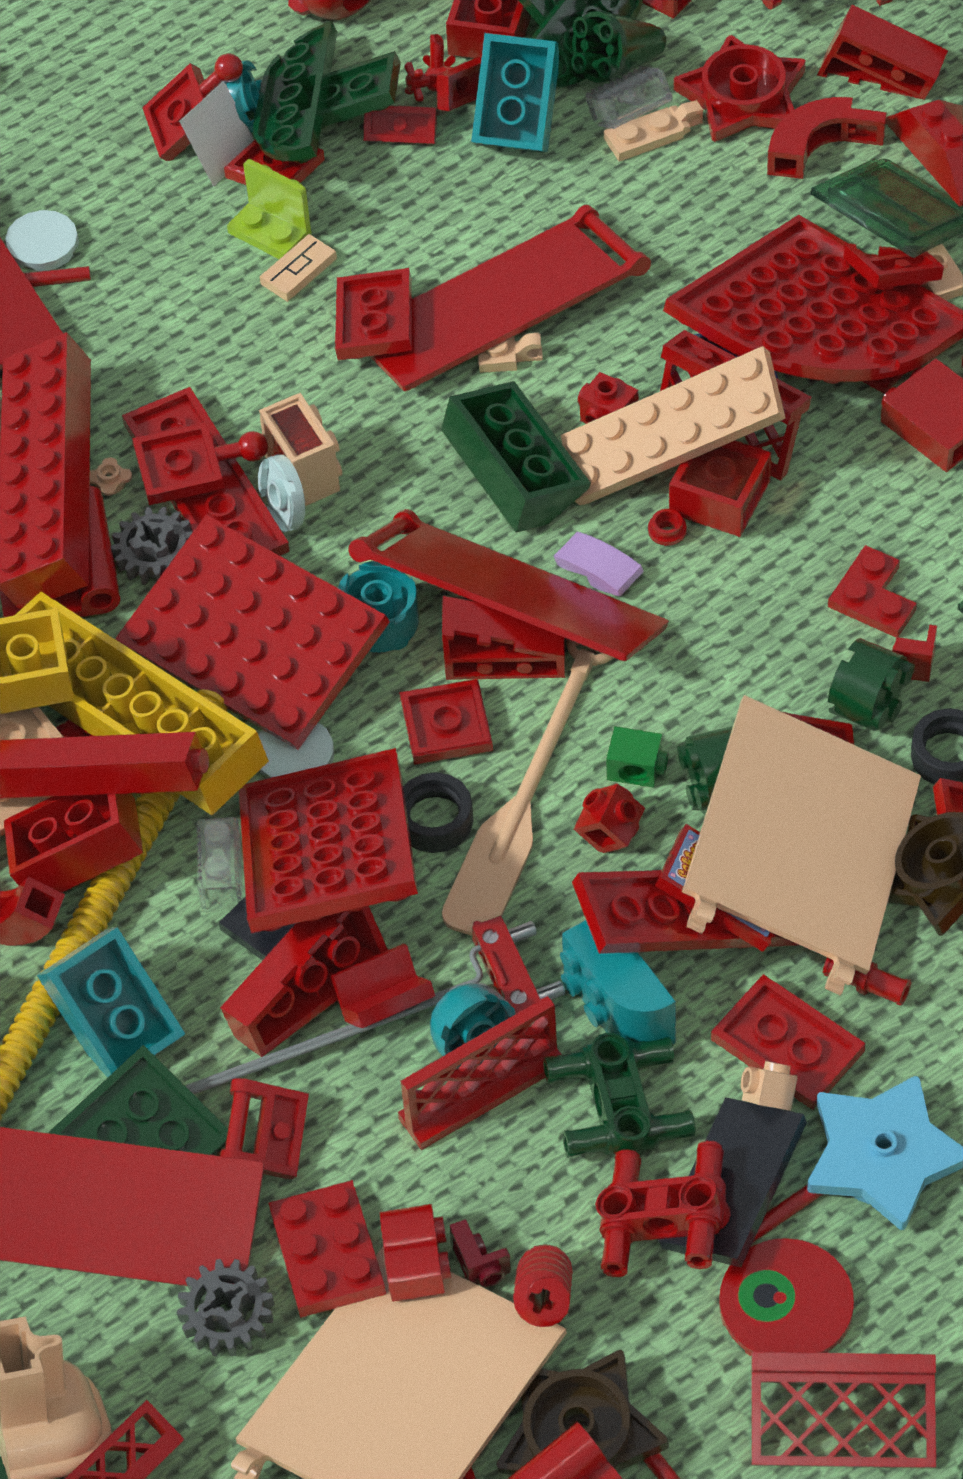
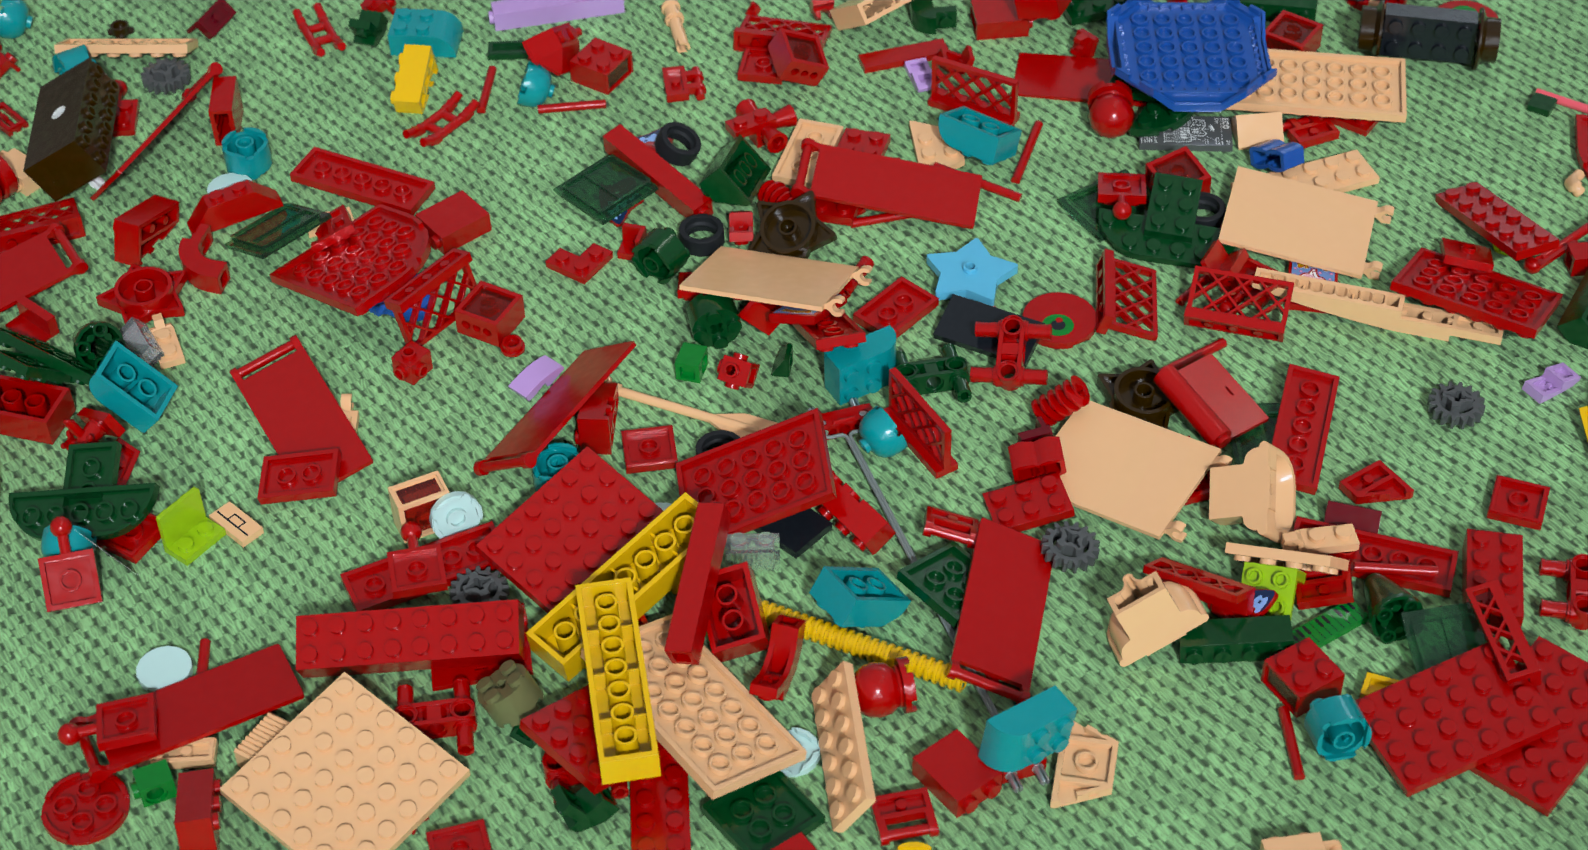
camera: 90 degrees left, 10 degrees down
(380, 987) = (858, 473): red panel -> none
(513, 454) = (445, 407): dark green slope -> none
(676, 424) = (456, 316): light nougat plate -> none
(769, 1086) = (932, 308): light nougat plate -> none

